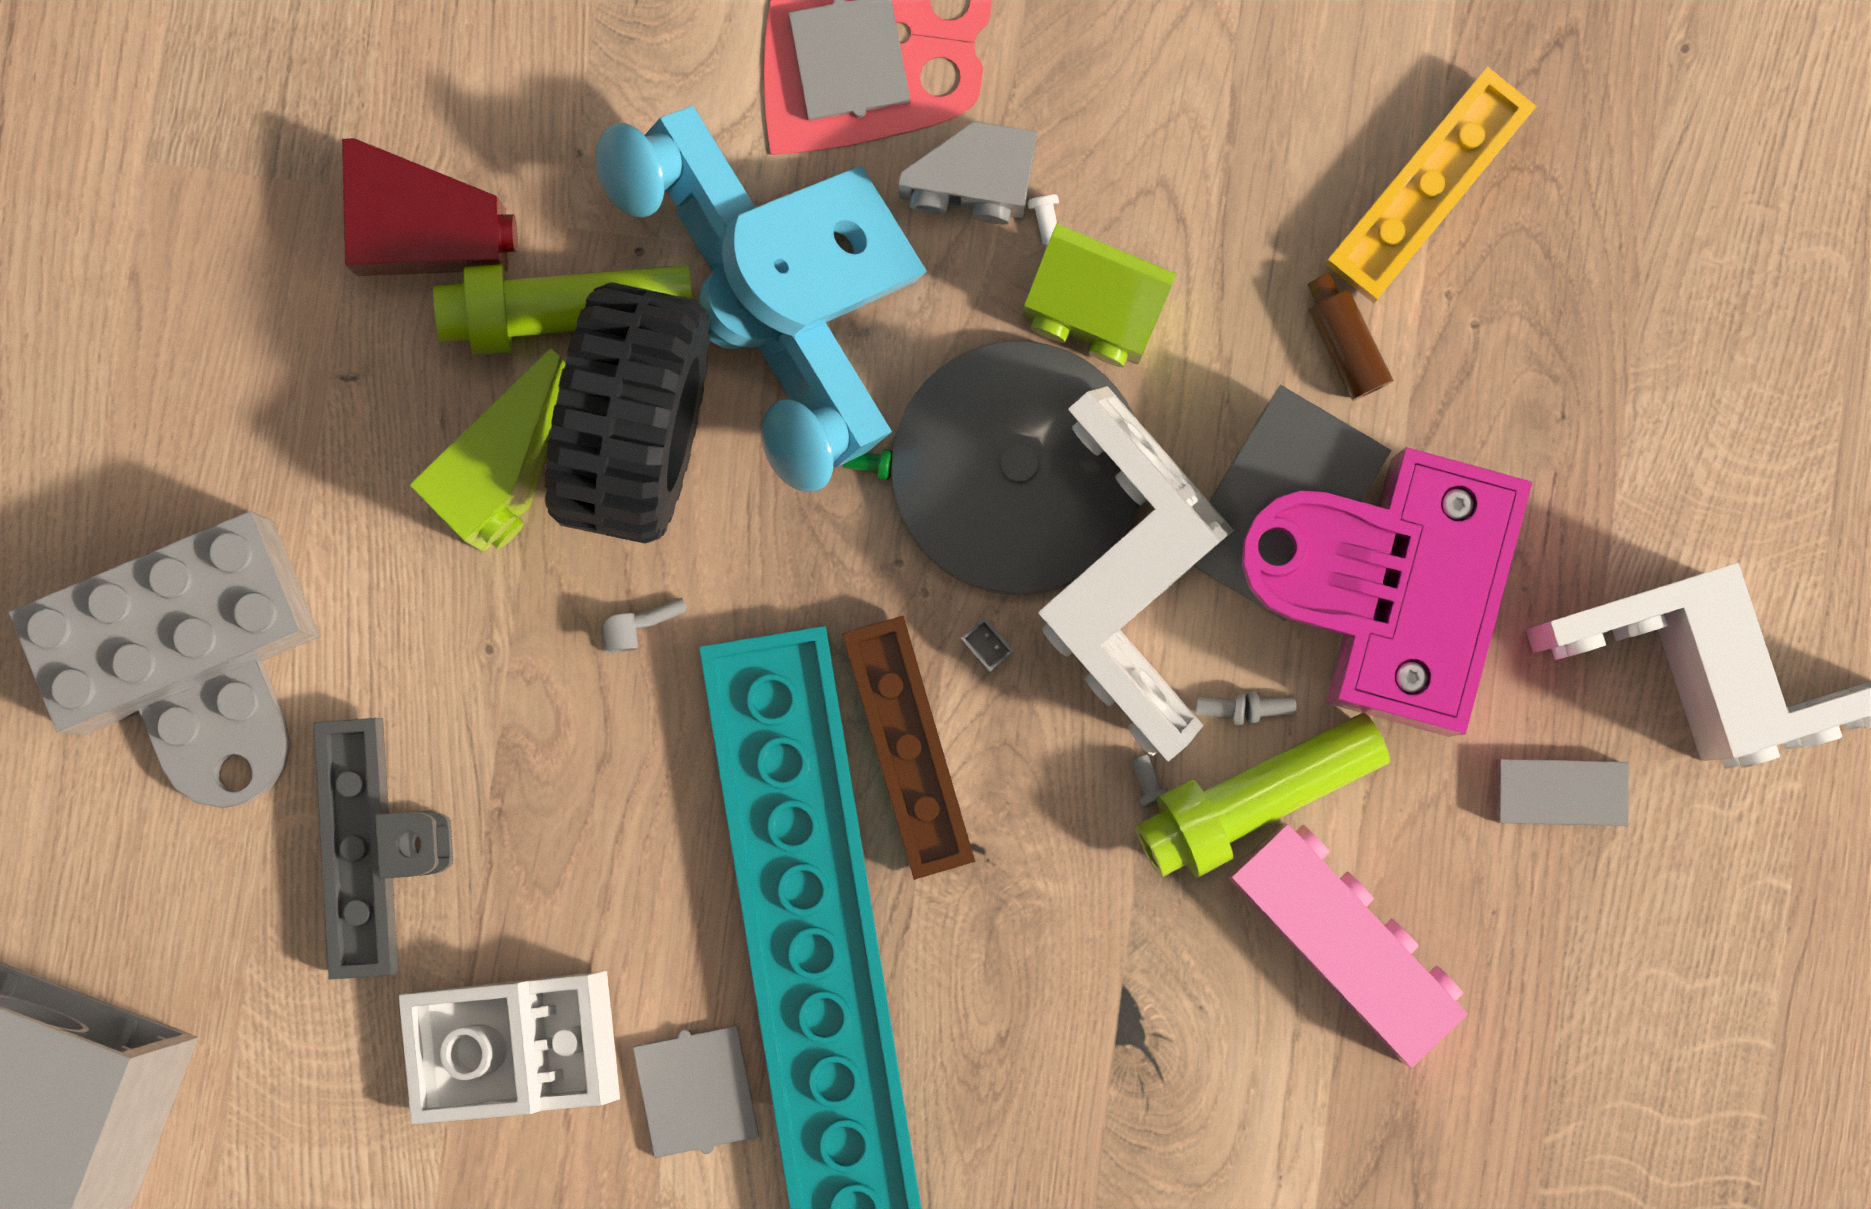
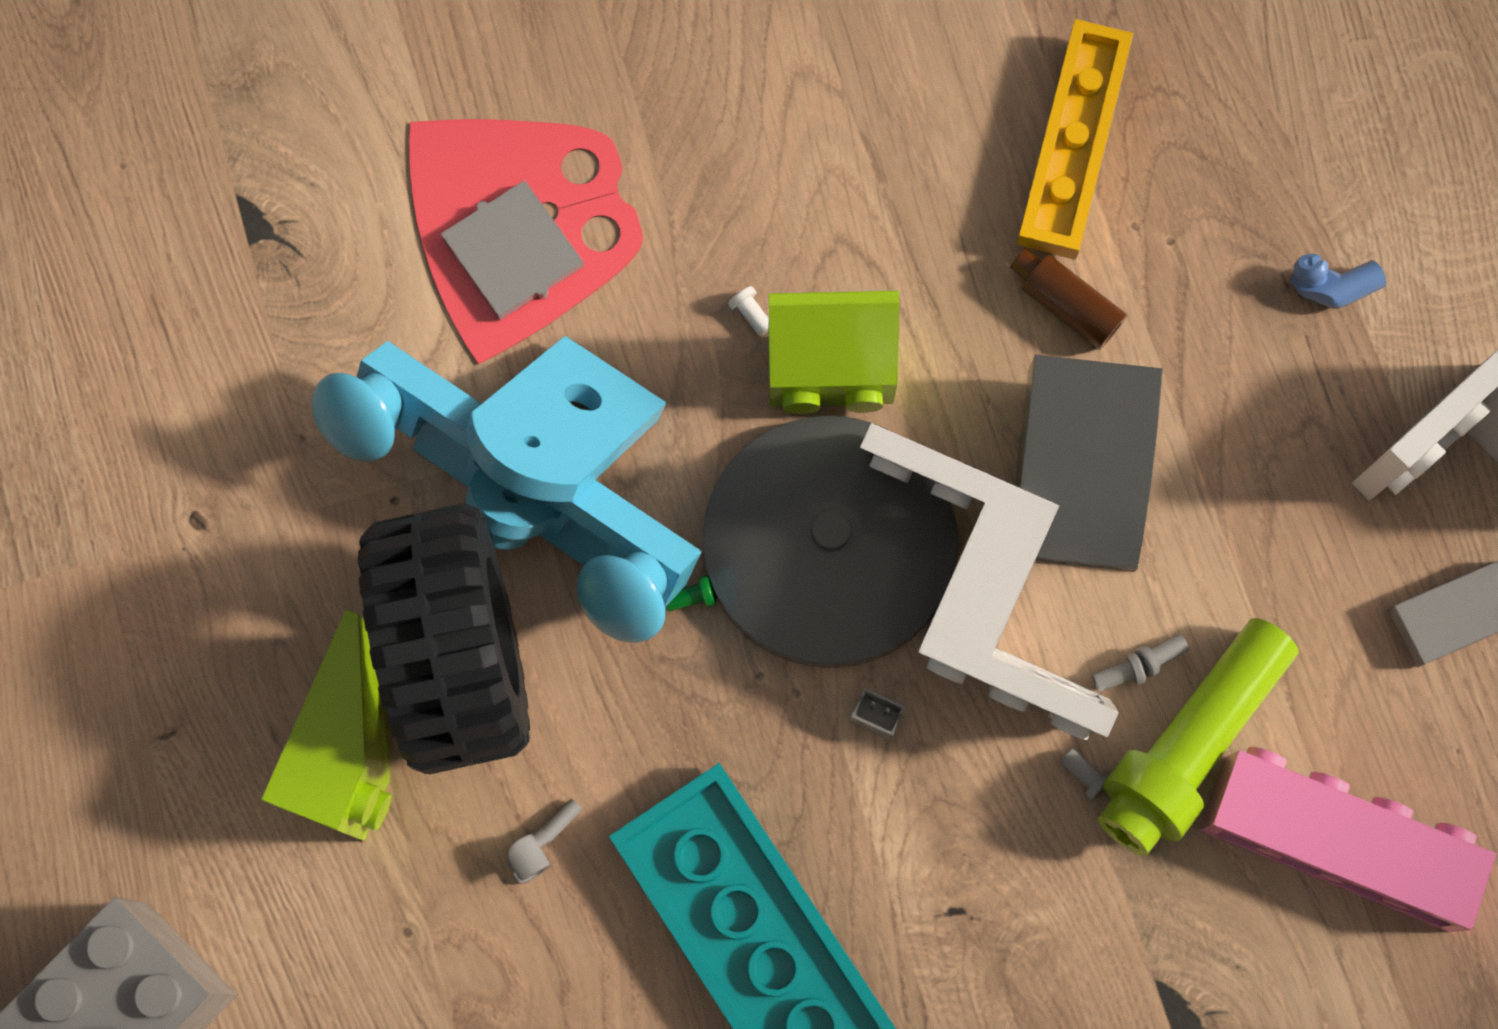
camera: 25 degrees left, 10 degrees down
(417, 219) = (173, 556): dark red slope -> none
(495, 308) = (279, 606): lime piece -> none
(908, 747) = (850, 844): reddish brown plate -> none
(974, 170) = (670, 295): light grey slope -> none
(1401, 582) = (1237, 479): dark pink brick -> none
(1600, 439) = (1332, 289): none -> medium blue arm

